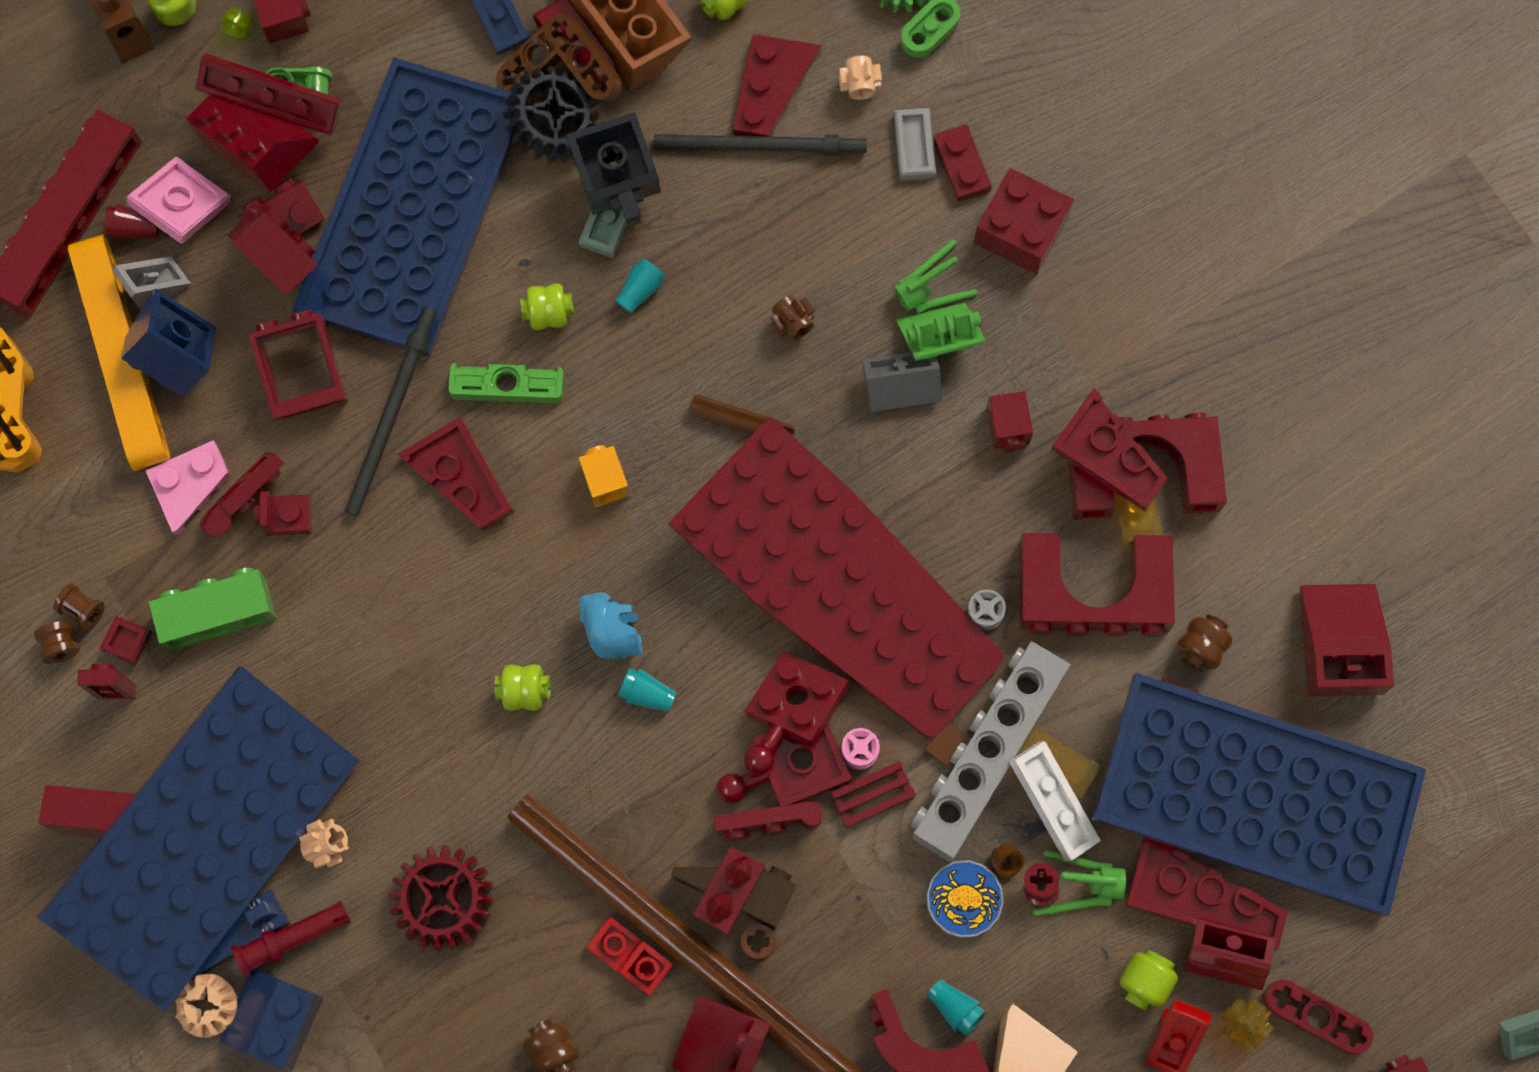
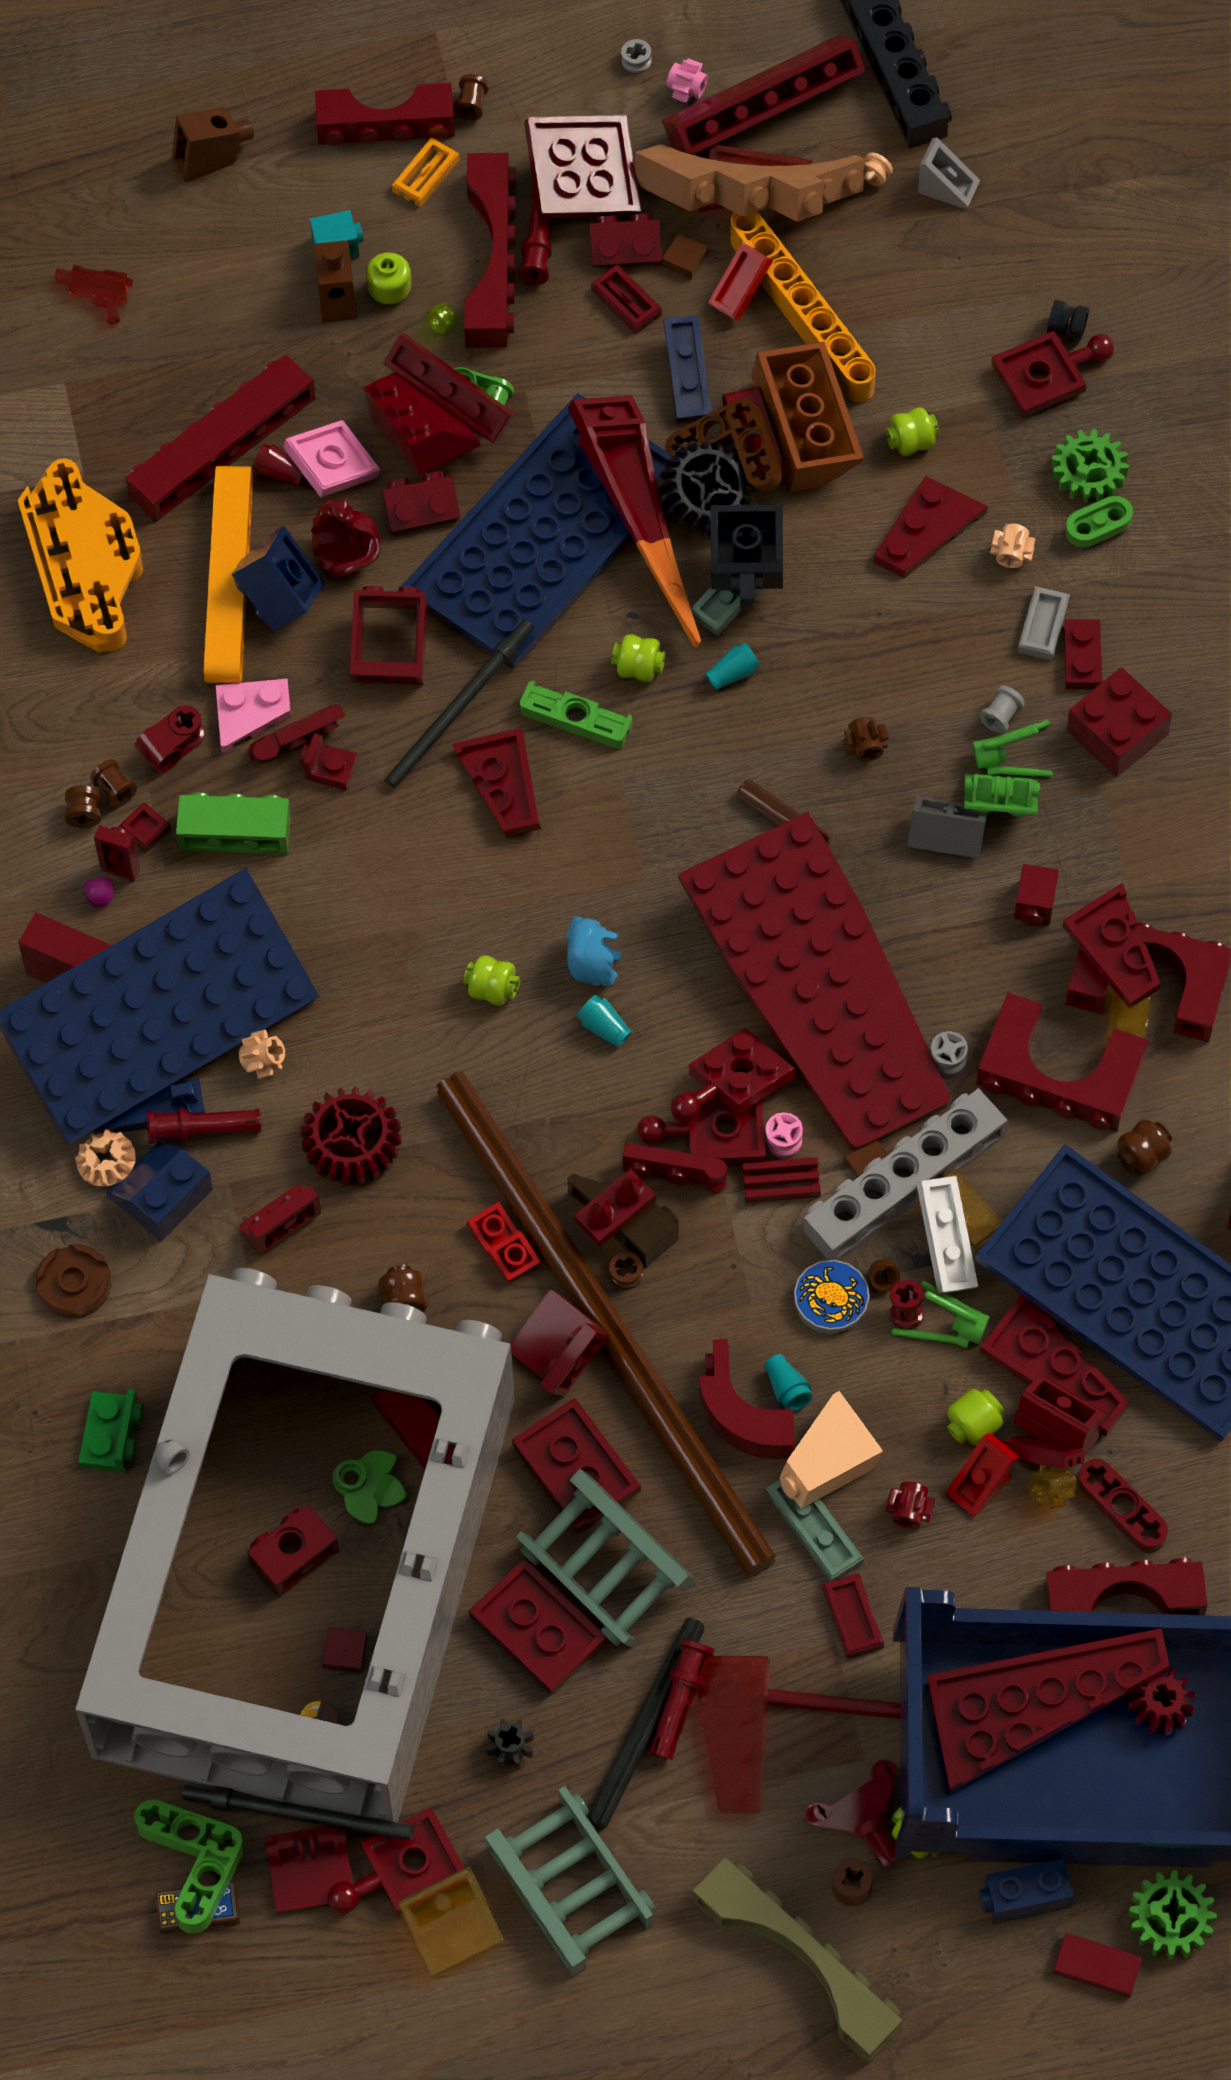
camera: 20 degrees right, 10 degrees down
(103, 726) = (99, 891): none -> magenta hinge
(119, 546) = (171, 739): none -> dark red piece
(144, 276) = (272, 514): light grey slope -> none
(220, 280) = (343, 539): none -> dark red hair
(272, 250) = (403, 523): dark red brick -> none
(401, 1010) = (281, 1218): none -> dark red bracket
(457, 107) = (620, 453): none -> dark red plate
(604, 475) = (635, 822): light orange brick -> none
(830, 144) = (960, 597): pearl dark grey bar -> none
(908, 244) = (1001, 709): none -> light grey bush
(1229, 997) = (1045, 1452): none -> dark red tile

